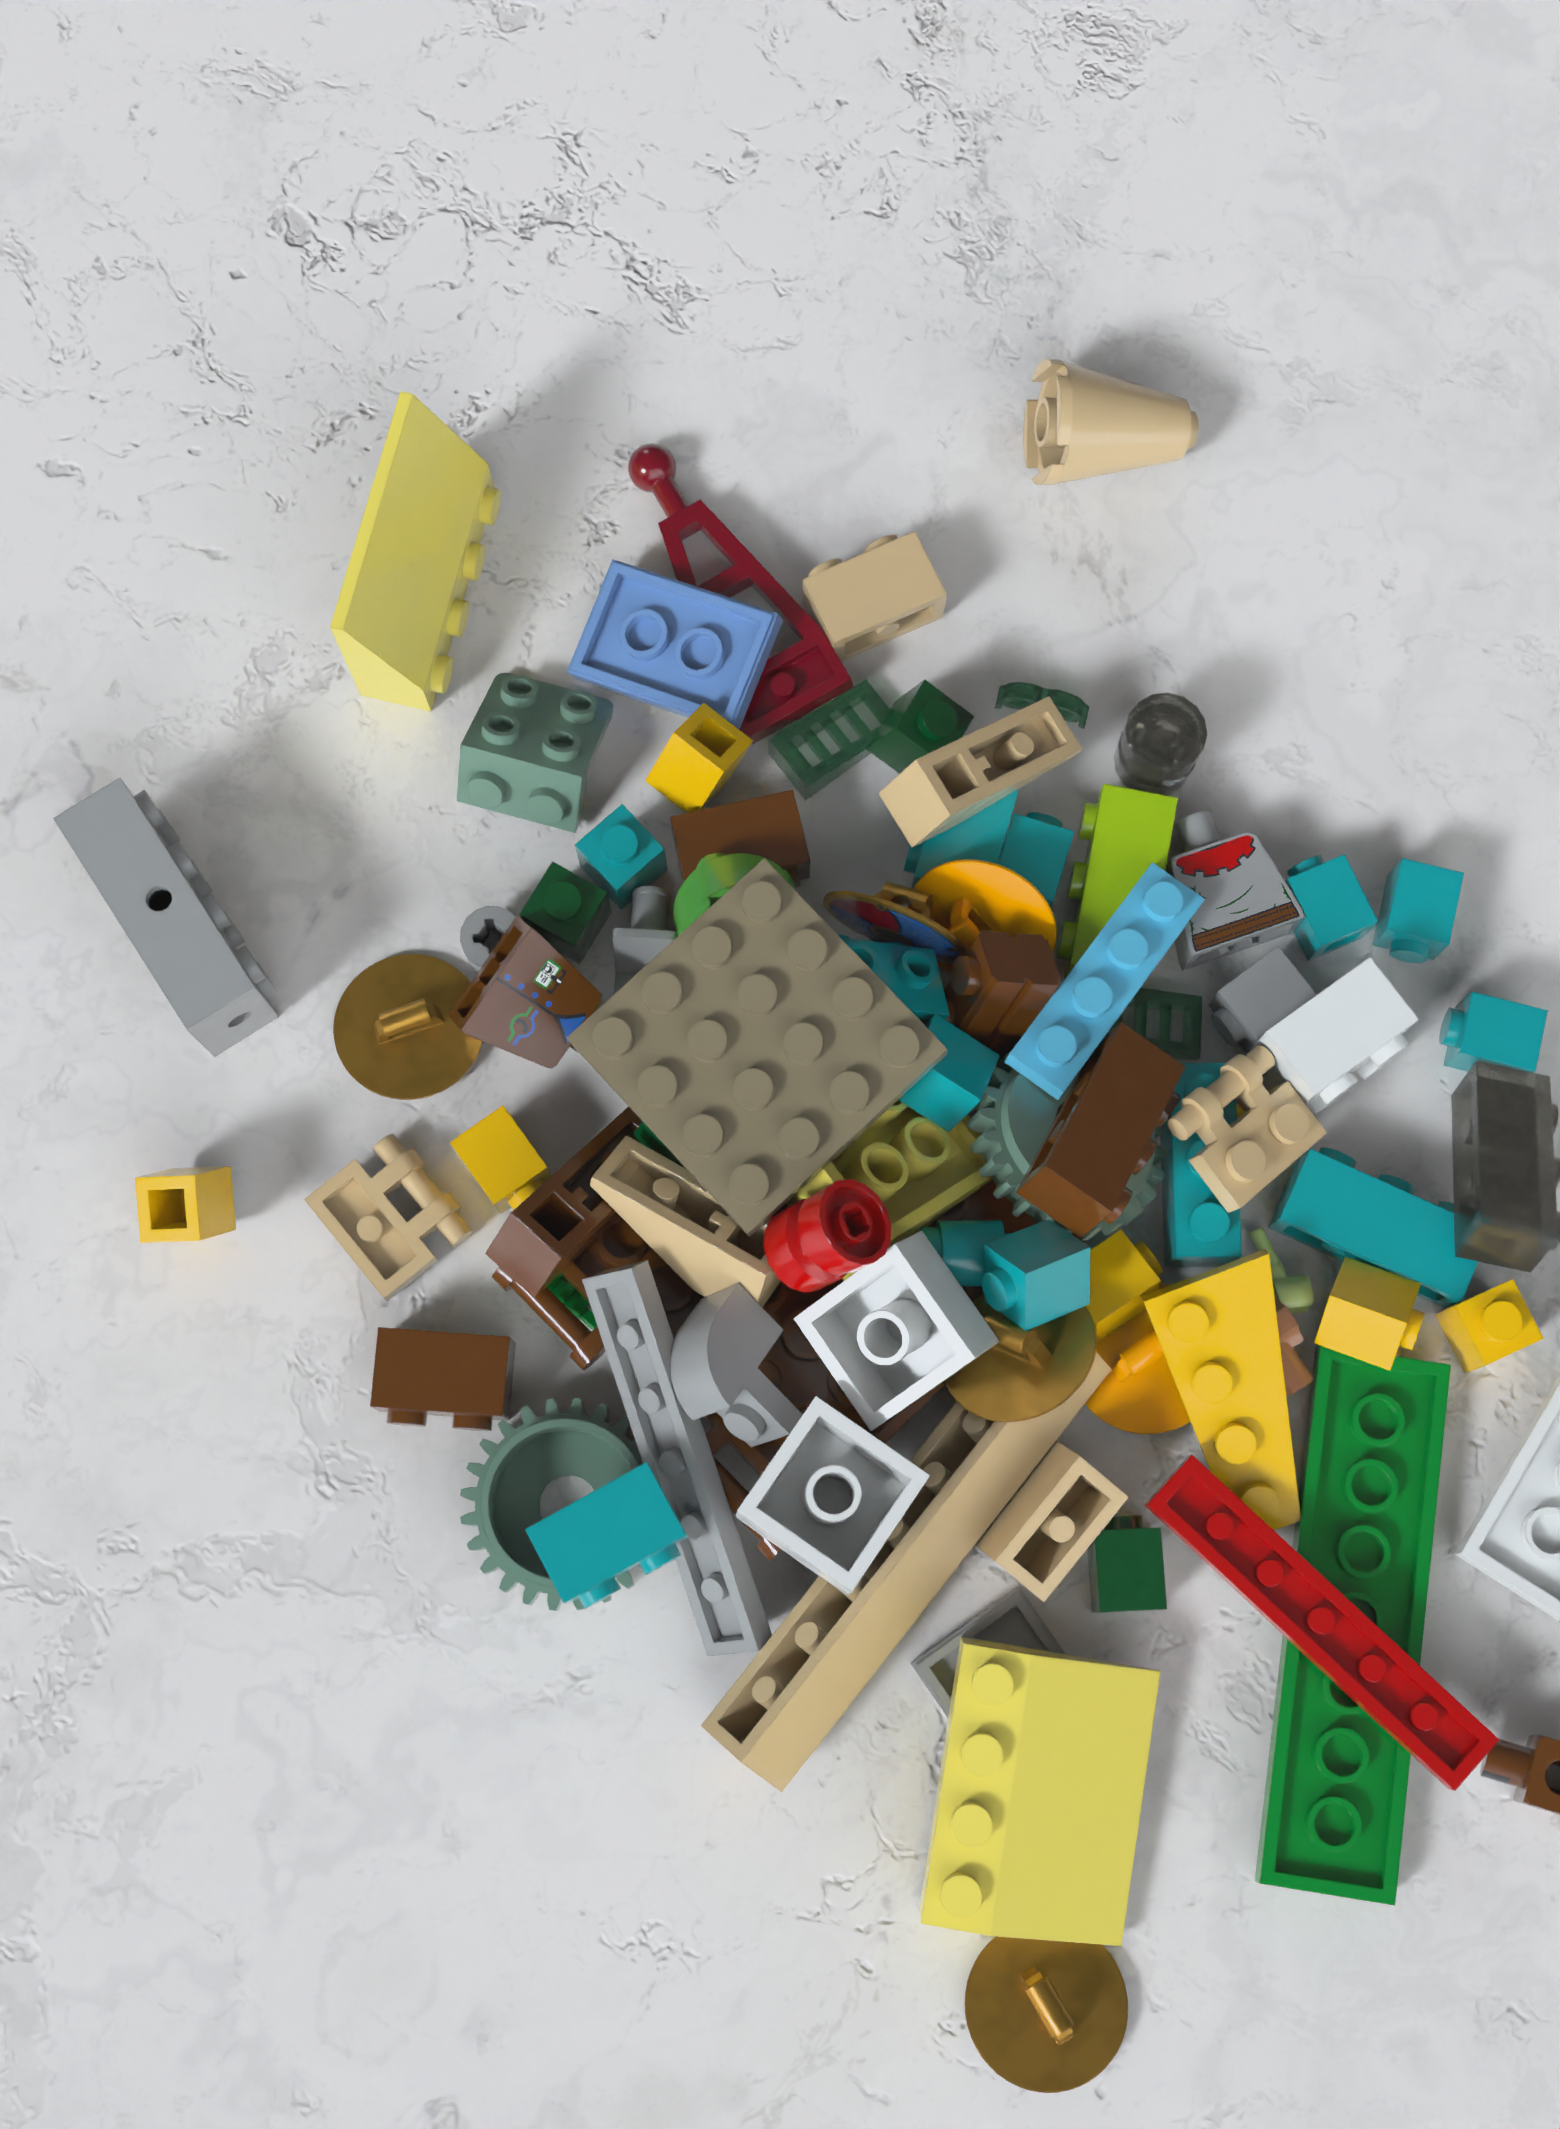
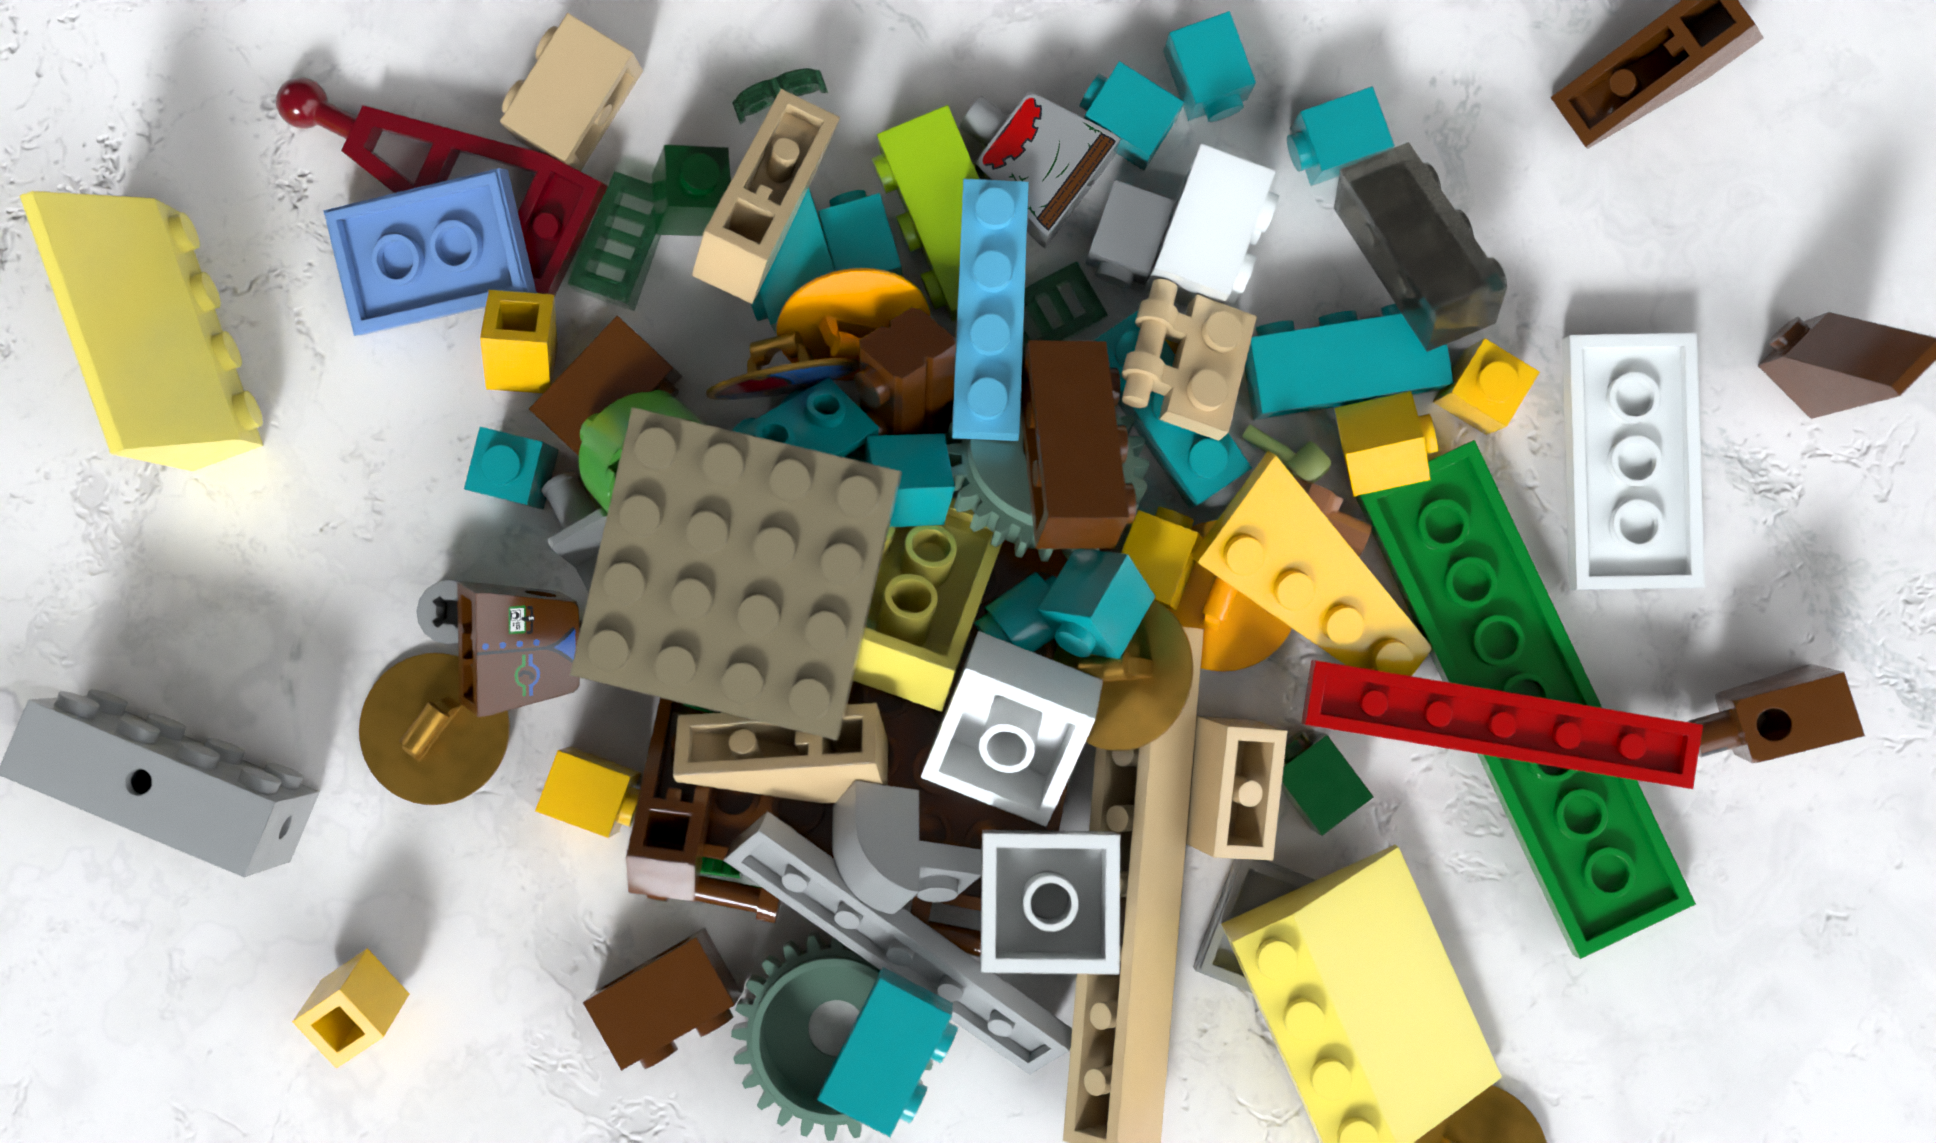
camera: 35 degrees left, 10 degrees up
(371, 1227) = (523, 918): tan plate -> none
(532, 750) = (371, 424): sand green bracket -> none
(567, 911) = (497, 547): dark green brick -> none
(827, 1236) = (904, 696): red wheel -> none
(1160, 744) = (902, 65): clear smoke wheel -> none

